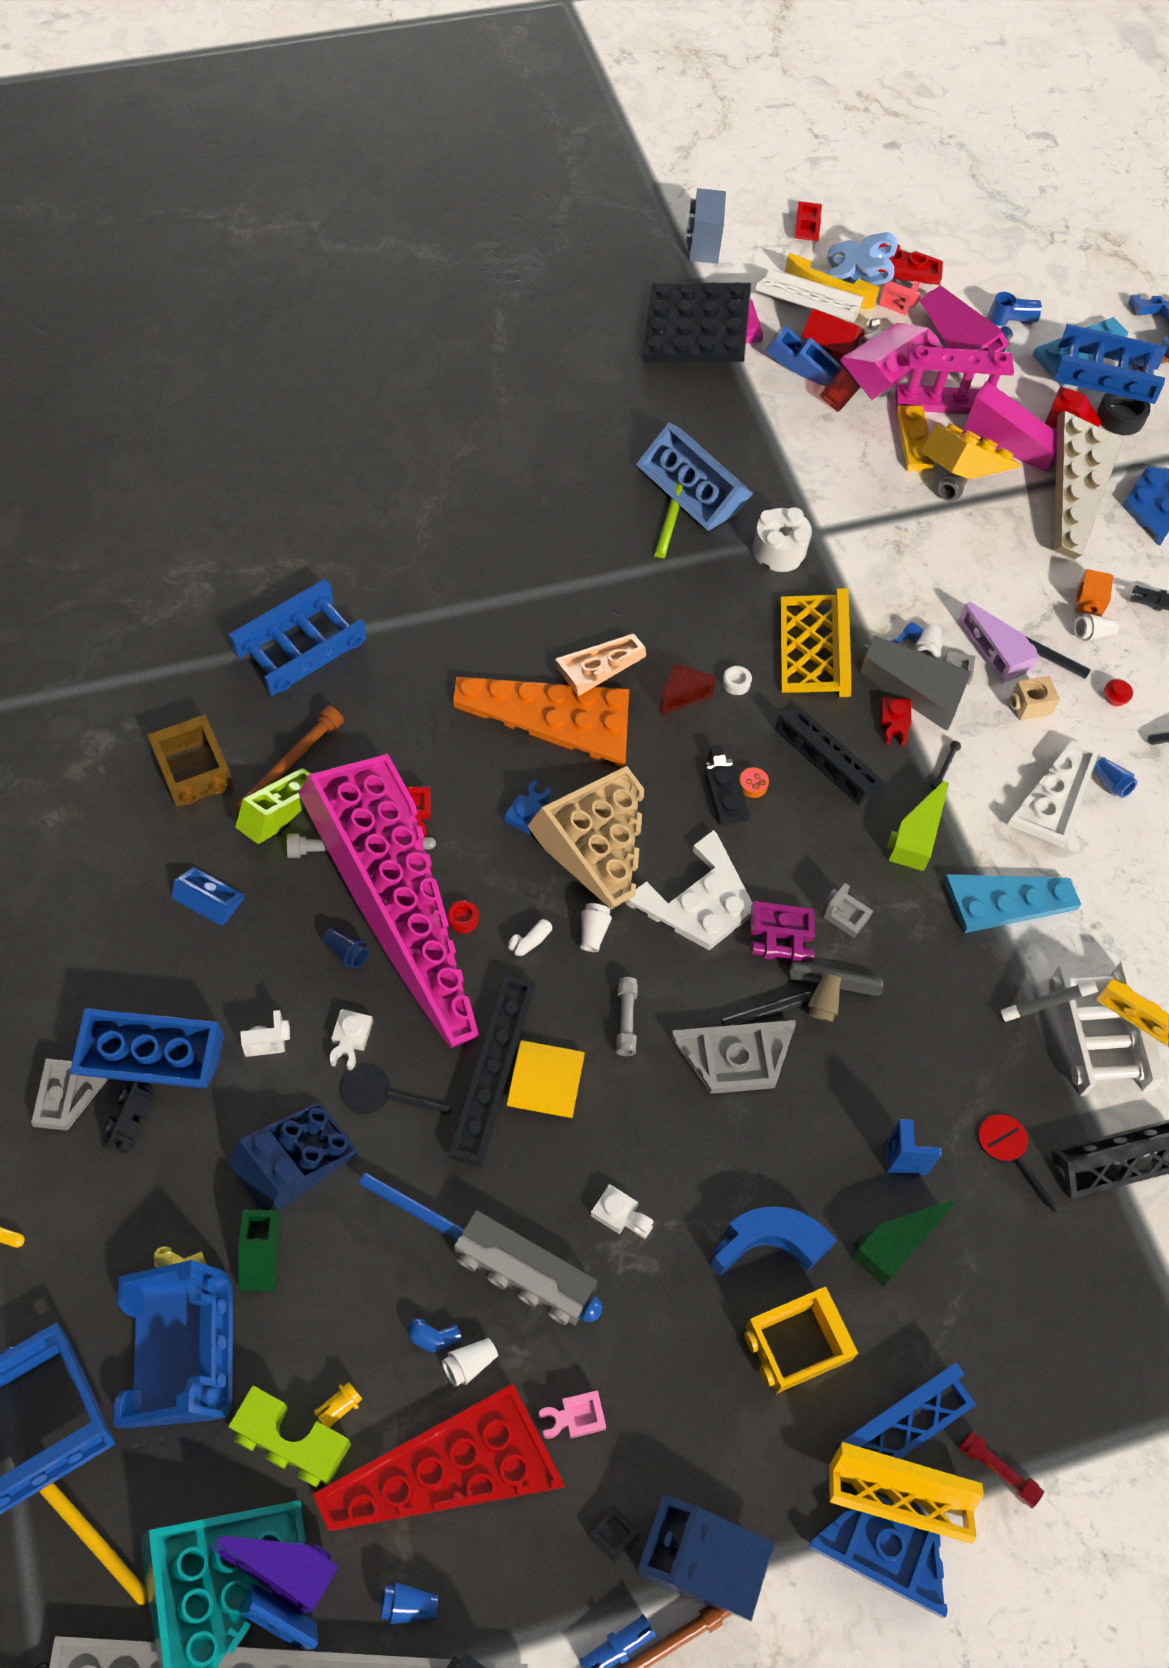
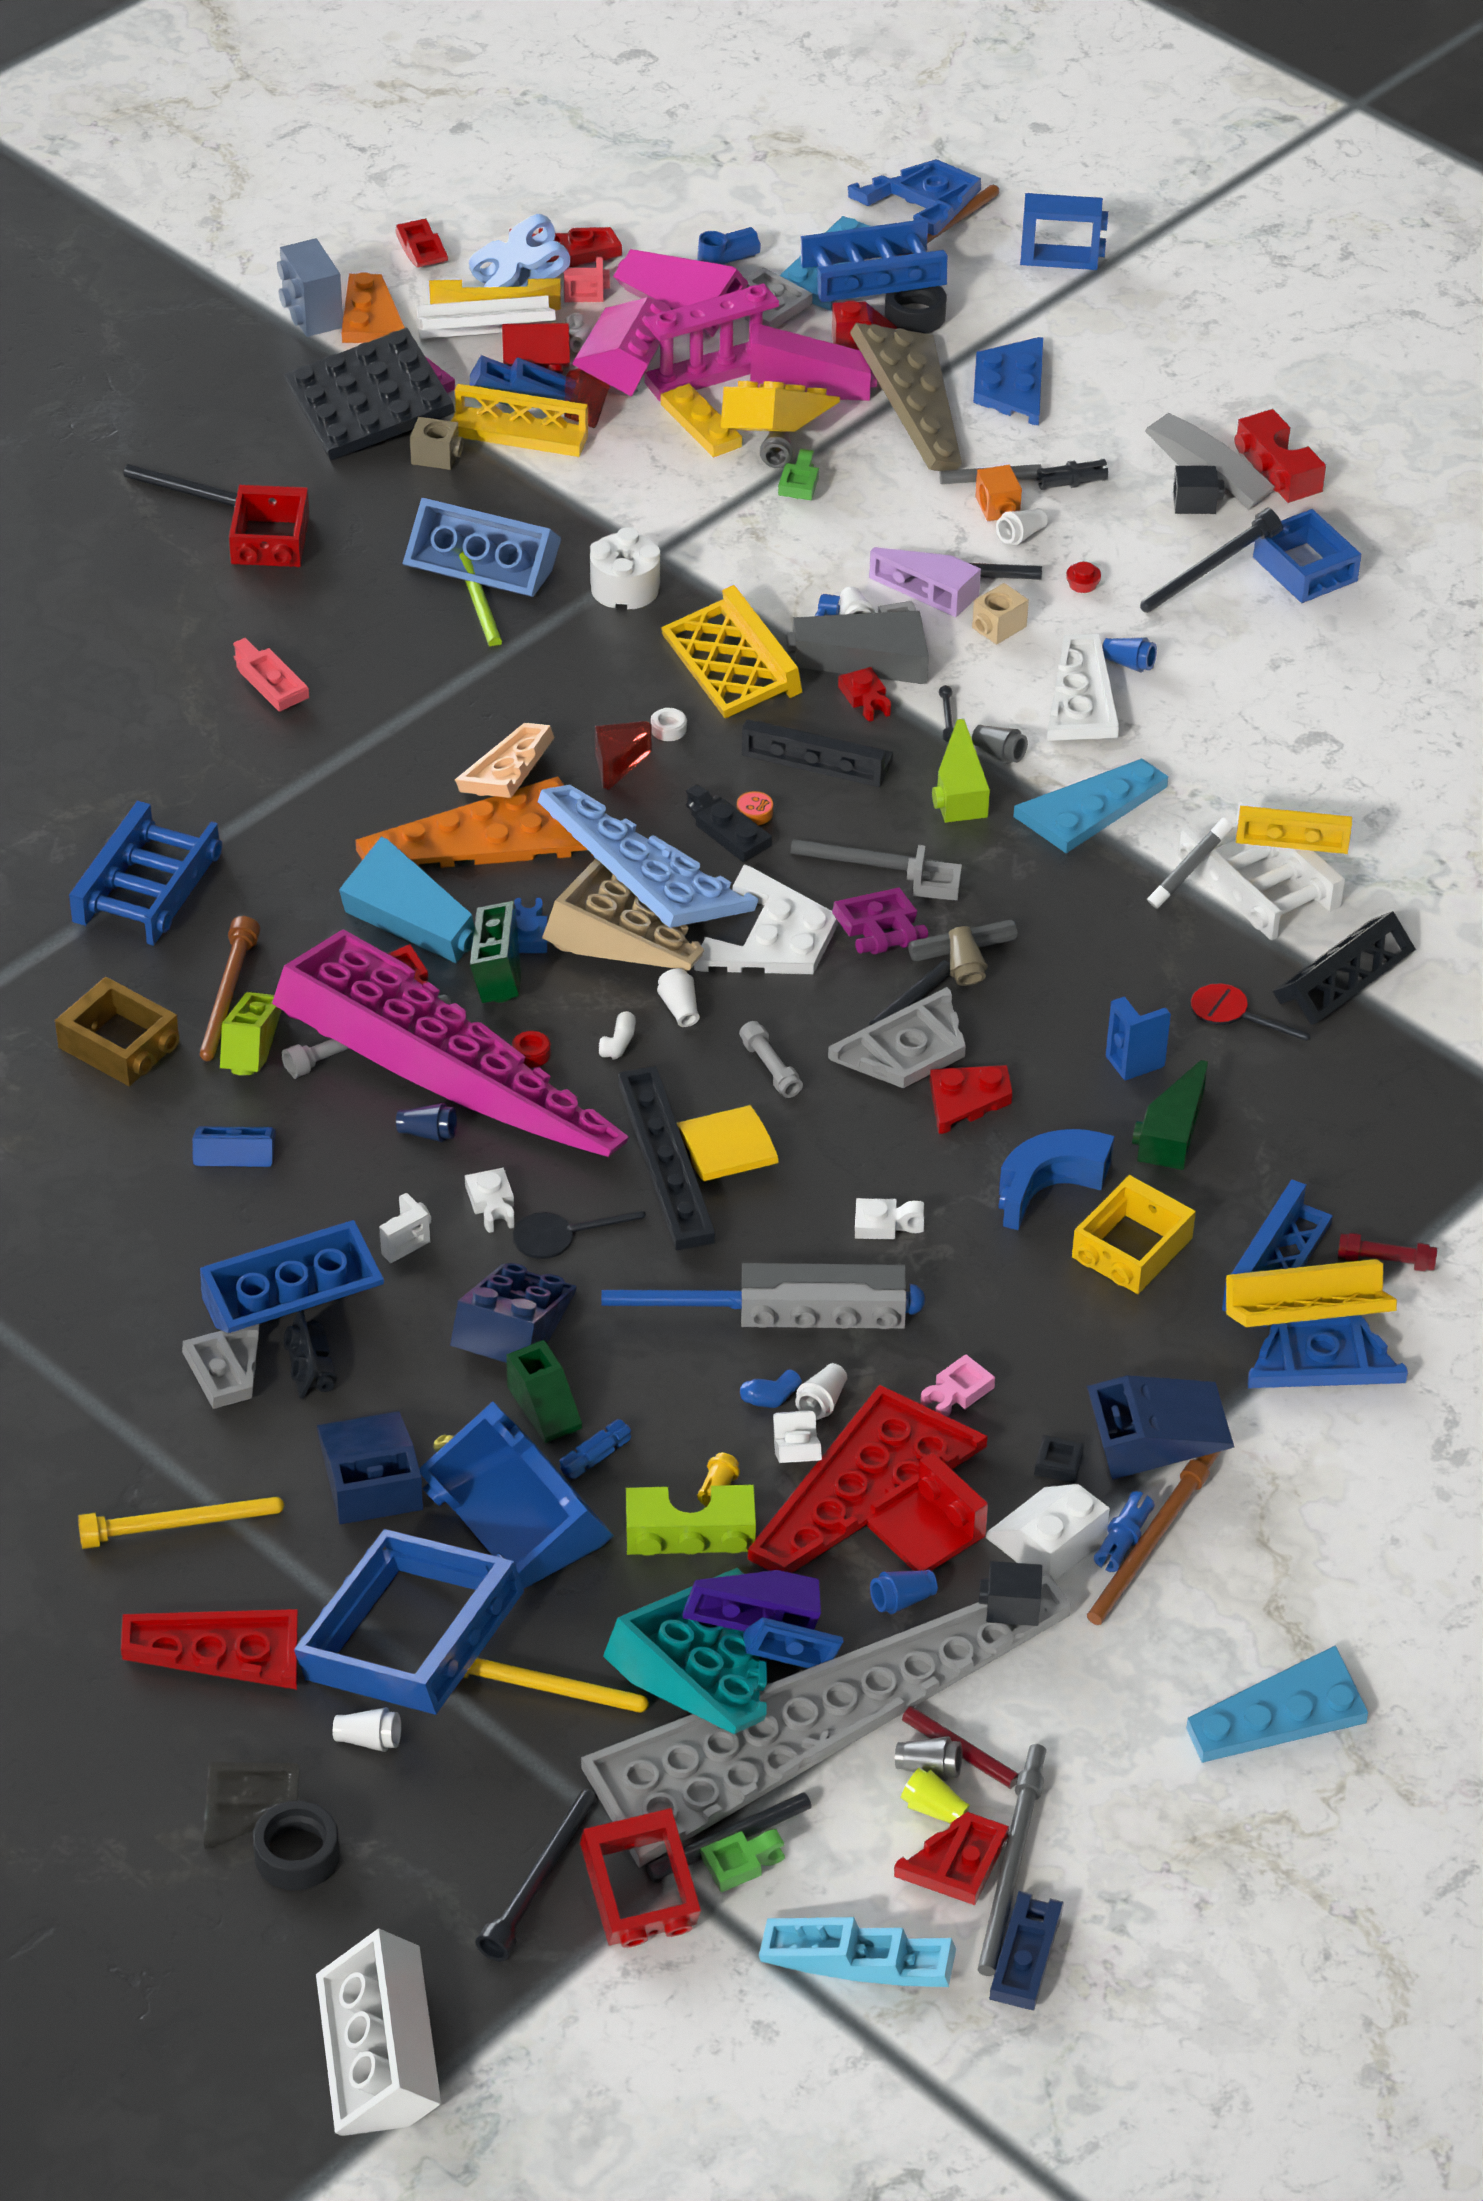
camera: 25 degrees left, 15 degrees down
(96, 1244) = (371, 1467): none -> dark blue slope
(270, 1319) = (595, 1449): none -> blue axle
(416, 1404) = (796, 1437): none -> white bracket
(452, 746) = (407, 903): none -> dark azure slope
(466, 1546) = (933, 1519): none -> red bracket
(483, 825) = (496, 953): none -> dark green slope
(487, 515) = (269, 675): none -> coral hinge
(531, 339) = (180, 485): none -> black bar
(558, 1608) = (1053, 1529): none -> white slope
(563, 374) = (254, 505): none -> red window
(638, 803) = (648, 867): none -> light blue wing
(716, 379) = (435, 443): none -> dark tan brick
(740, 258) = (368, 309): none -> orange wing
(756, 1124) = (968, 1093): none -> red wing
(785, 391) = (520, 427): none -> yellow fence
(802, 860) = (851, 855): none -> dark grey bar
(955, 517) = (800, 478): none -> bright green plate
(969, 812) = (1003, 743): none -> dark grey cone
(1028, 362) = (791, 297): none -> light grey plate
(1081, 566) = (970, 475): none -> dark grey bar

